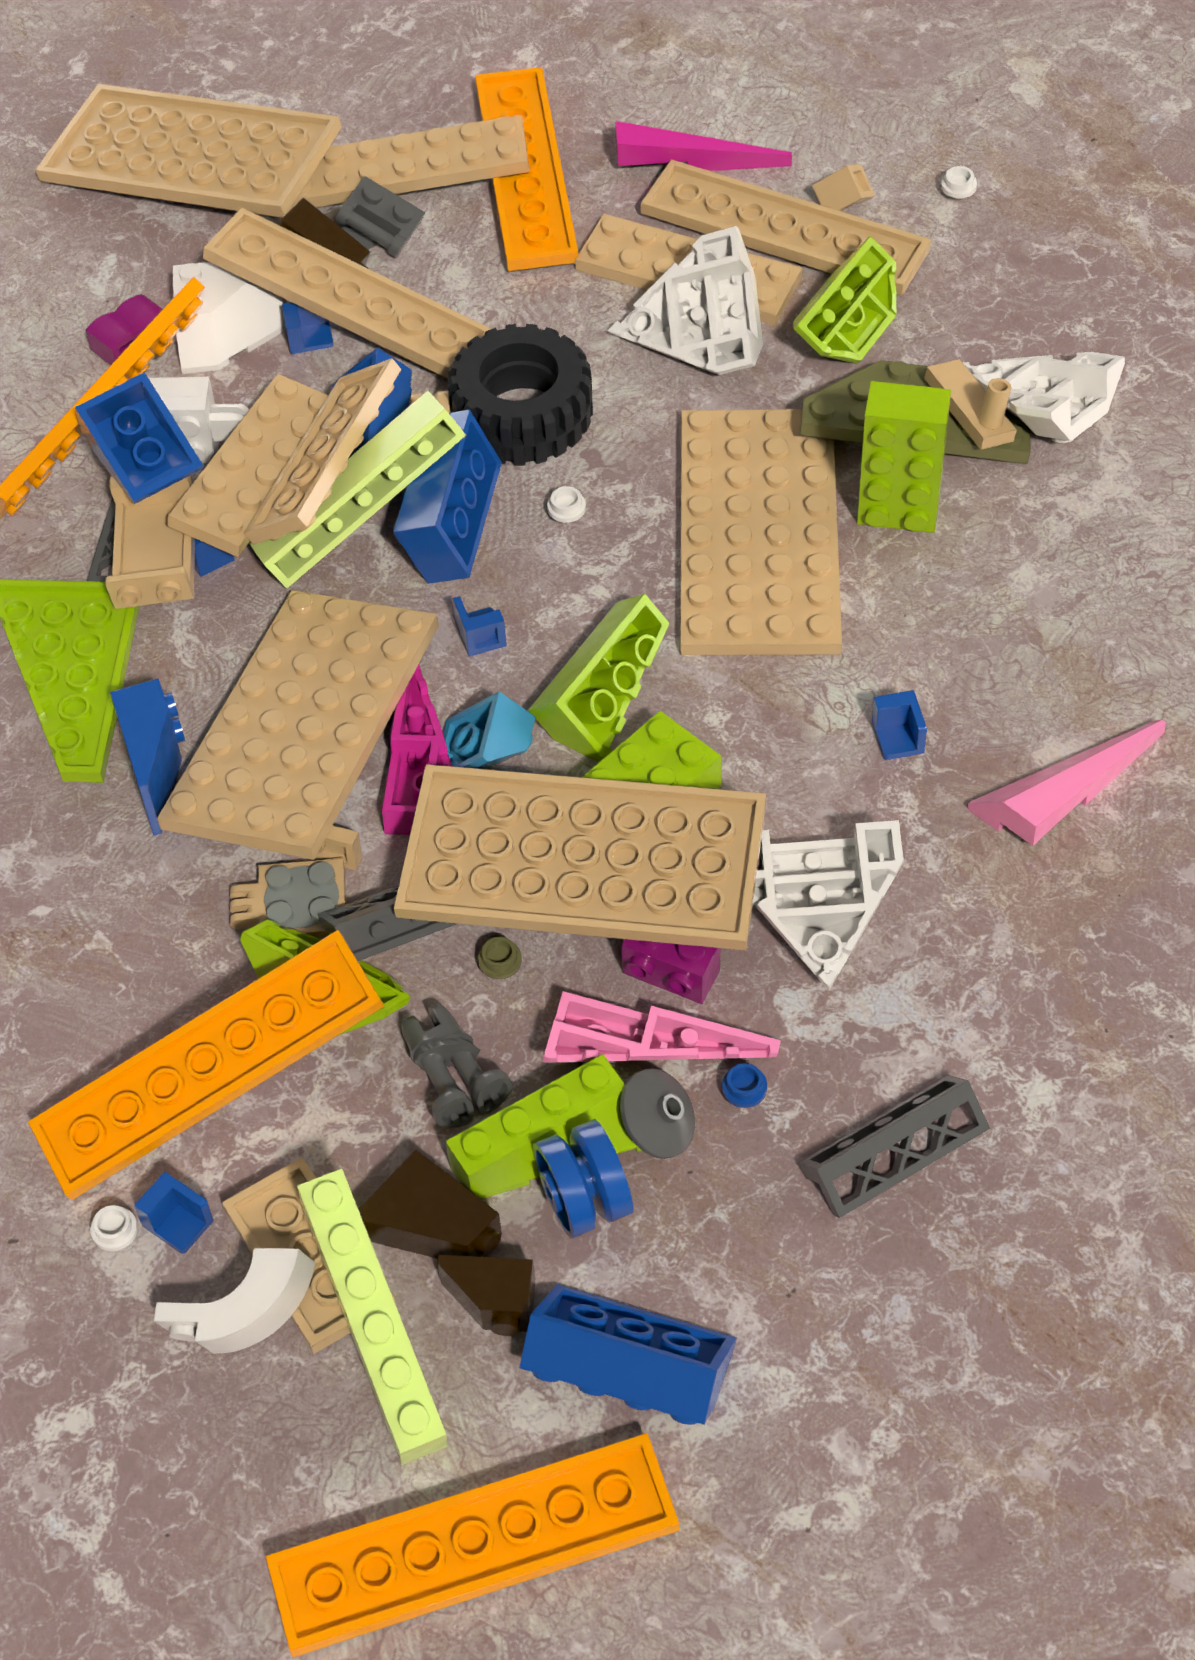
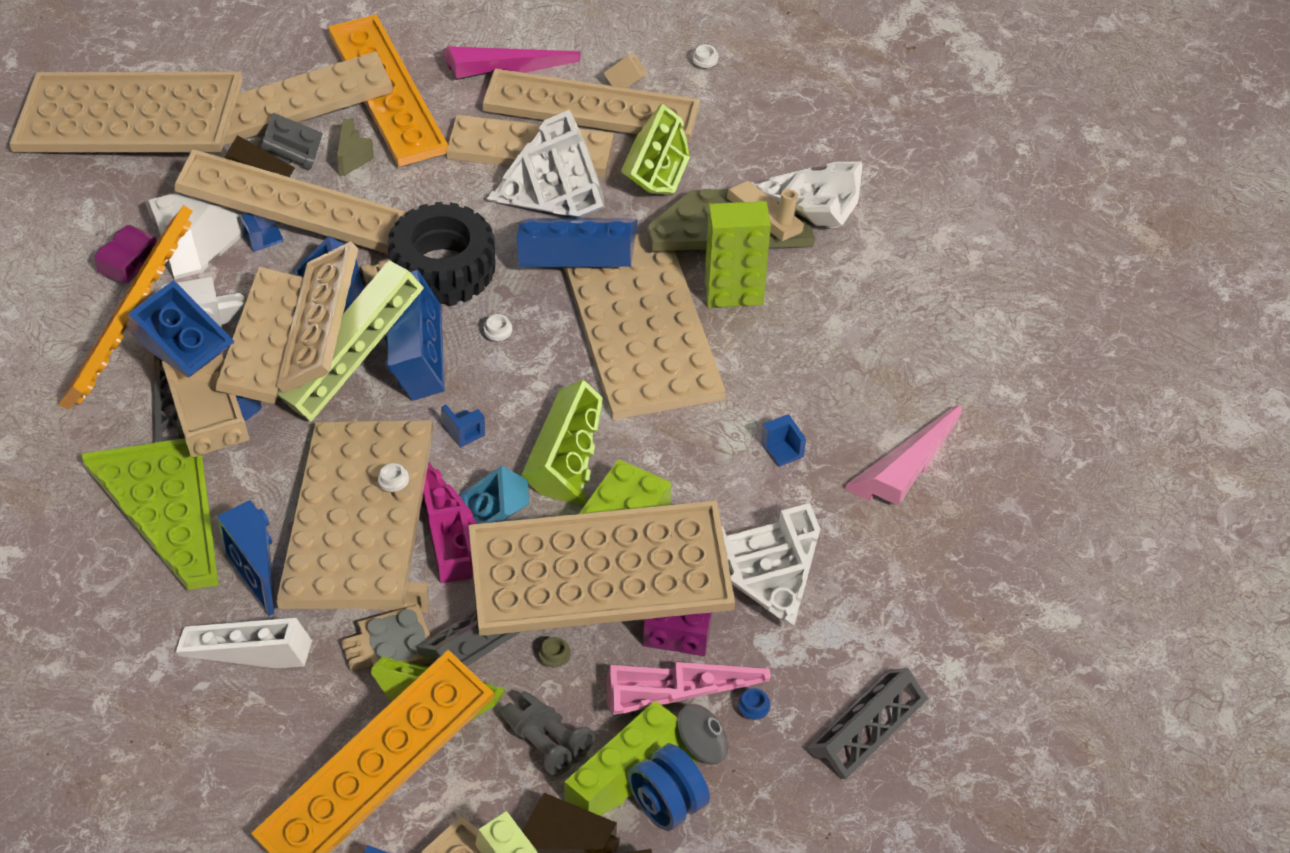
camera: 20 degrees left, 5 degrees down
(118, 868) = (254, 643): none -> white slope
(353, 682) = (393, 477): none -> white plate
(454, 238) = (352, 149): none -> olive slope
(700, 406) = (576, 242): none -> blue slope

